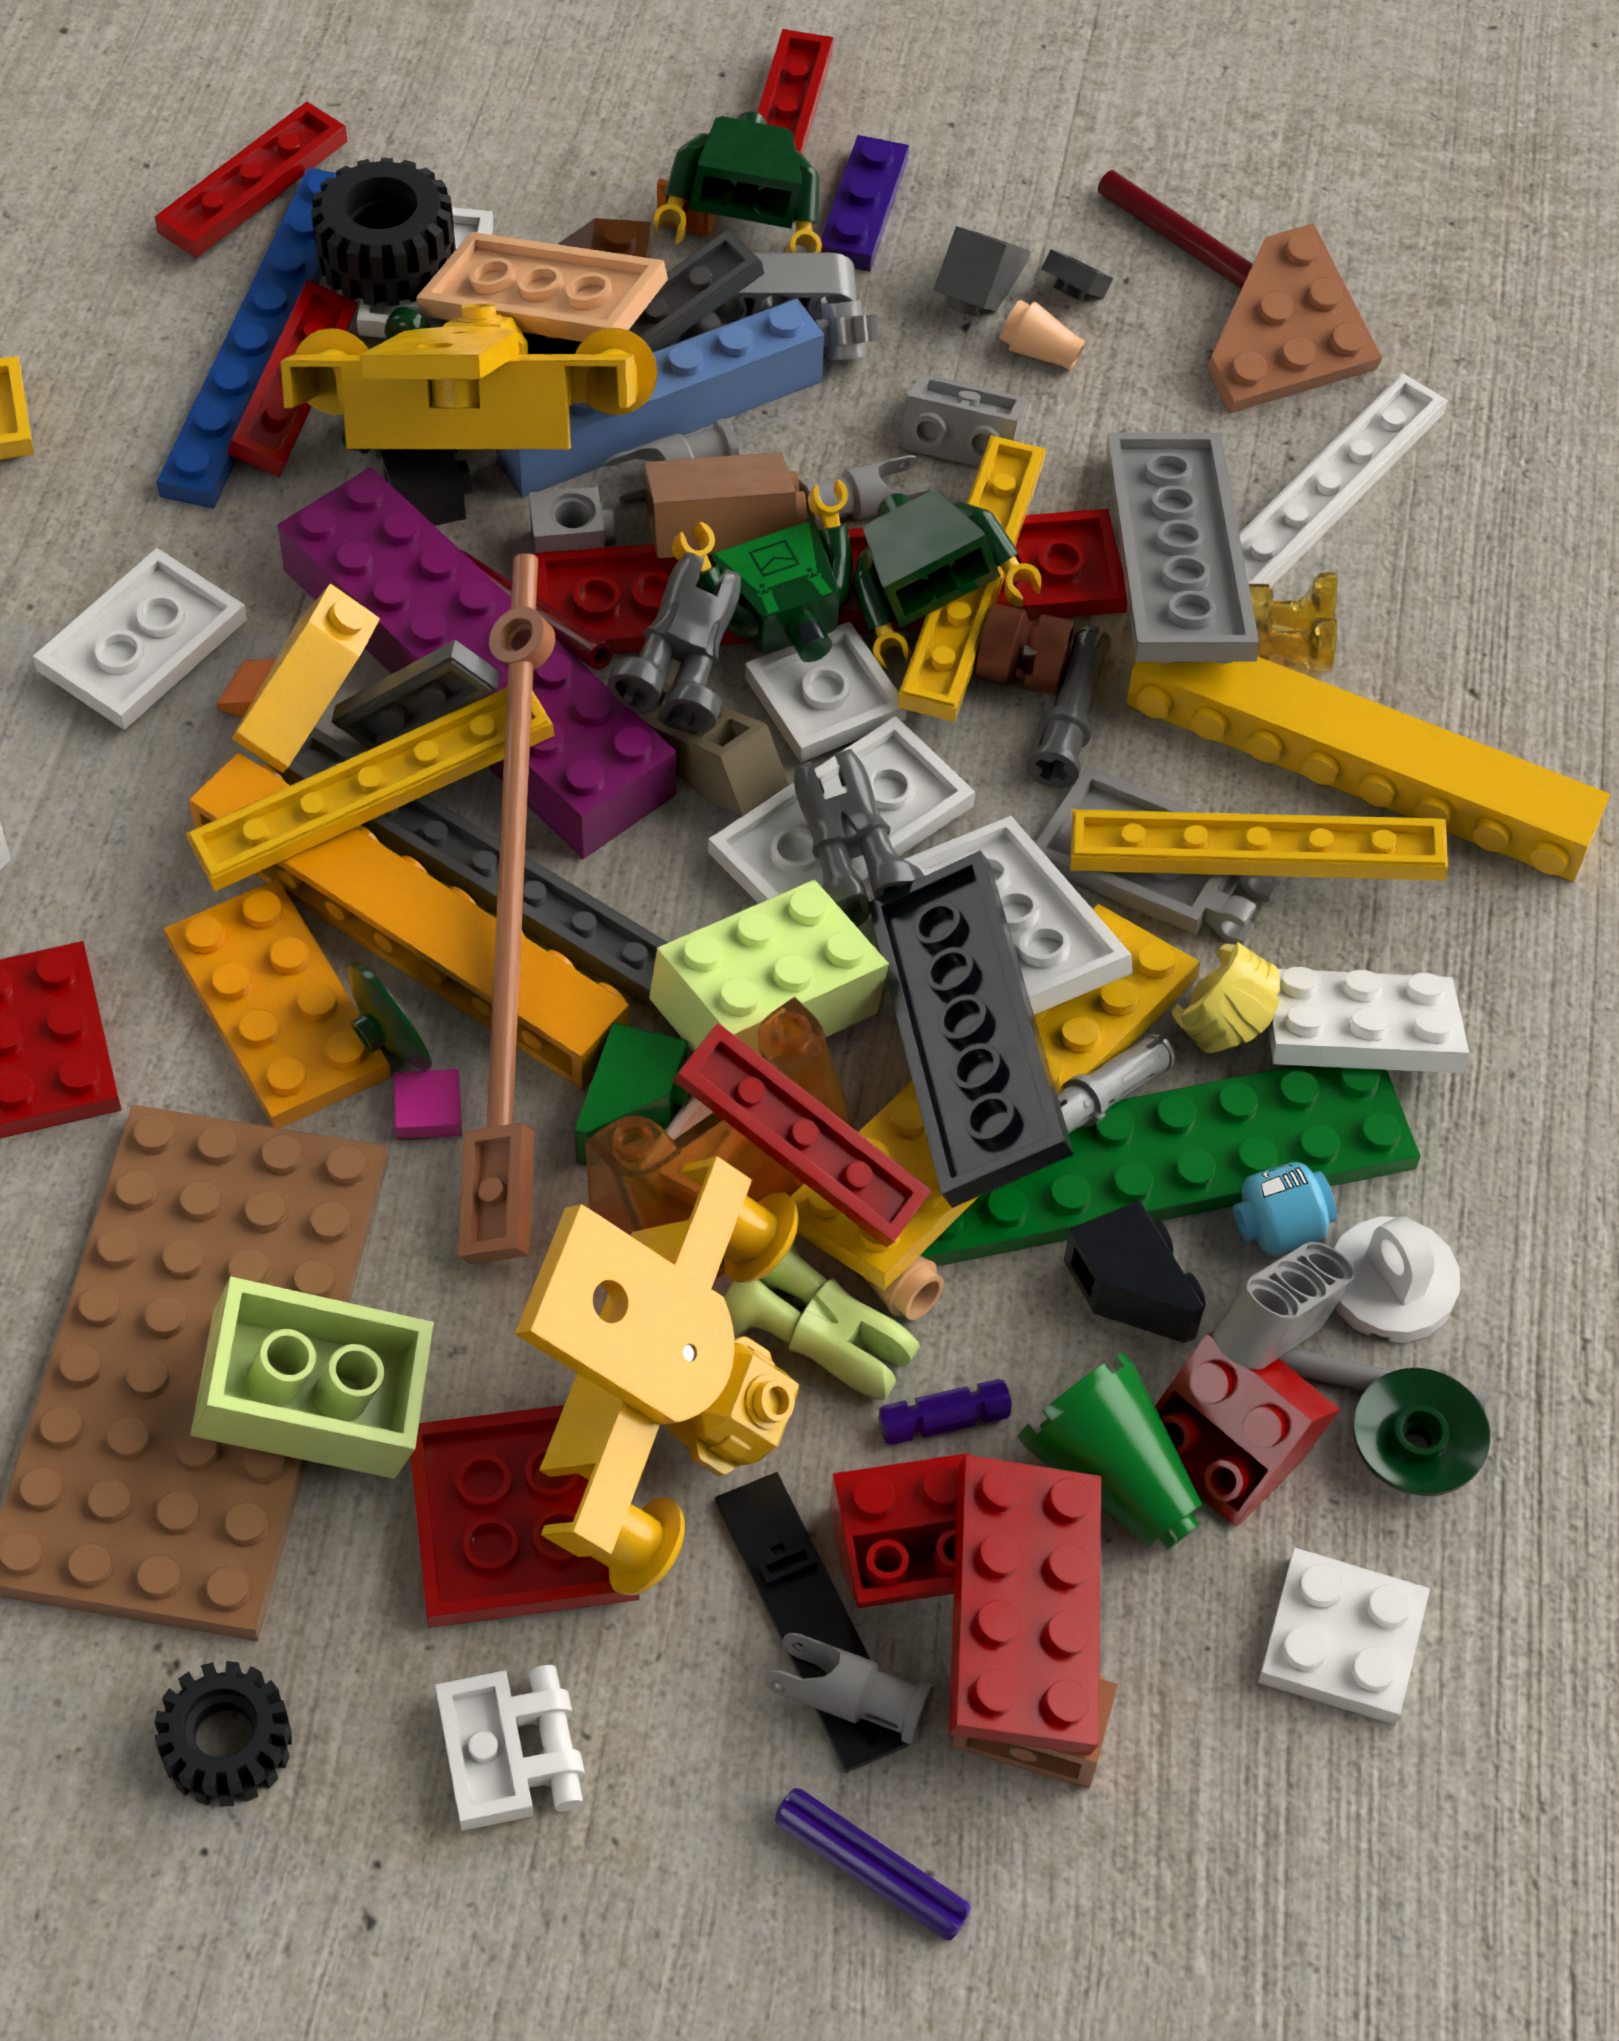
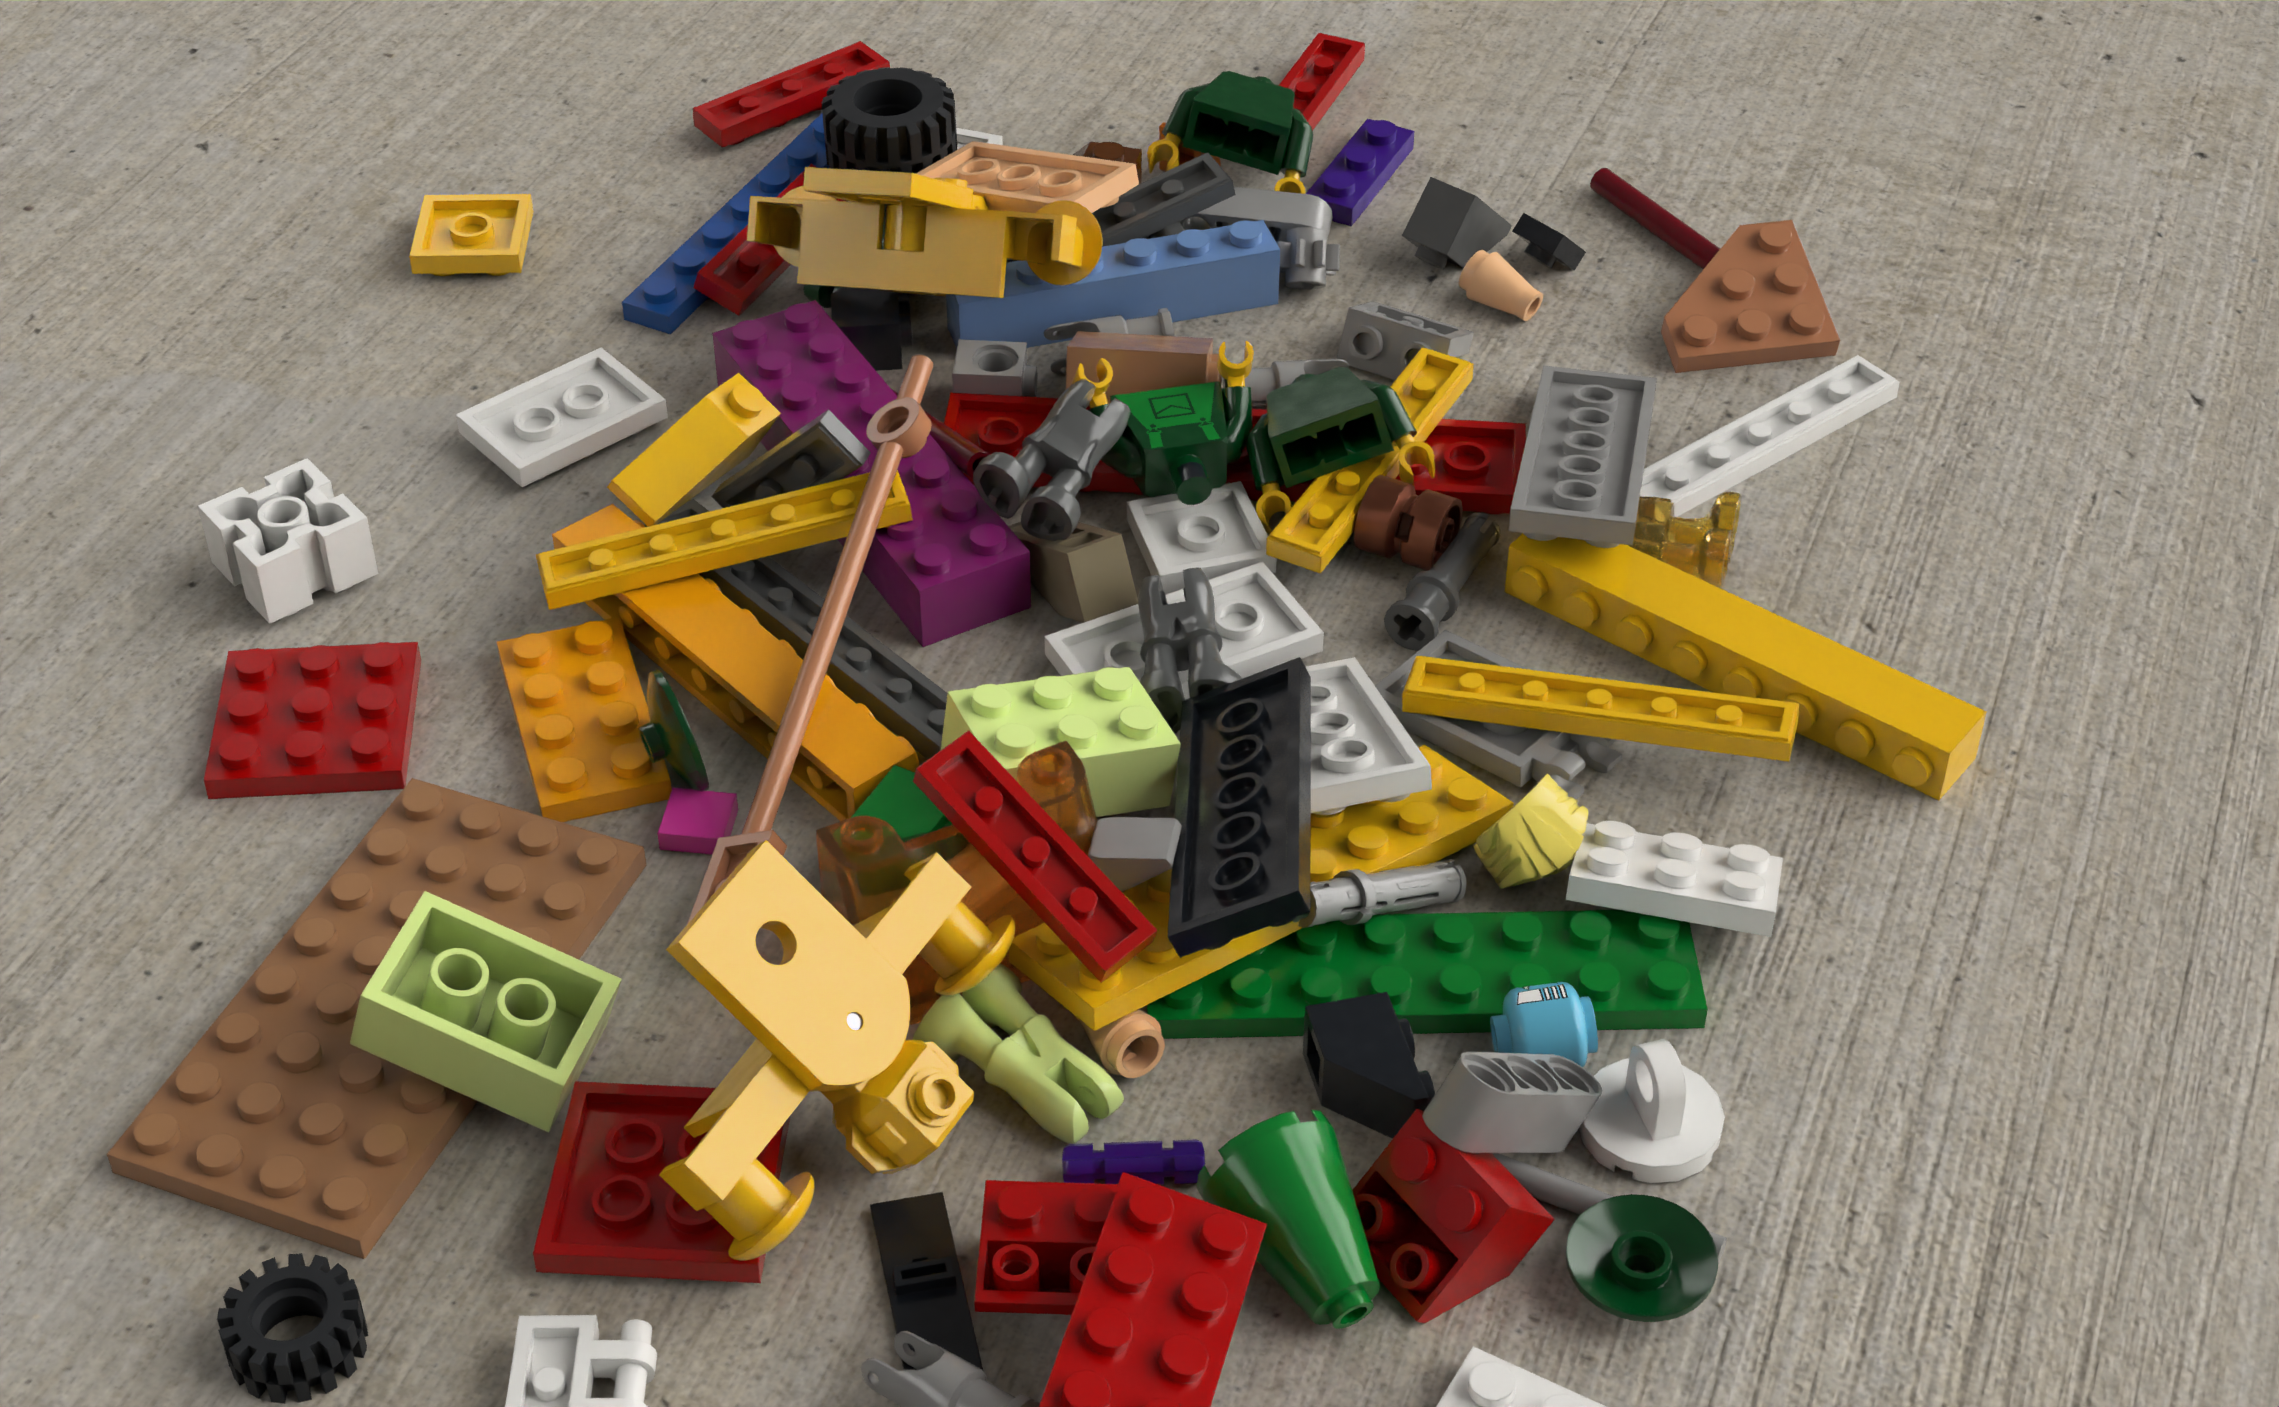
camera: 15 degrees right, 15 degrees down
(879, 1094) = (1134, 848): none -> light grey slope

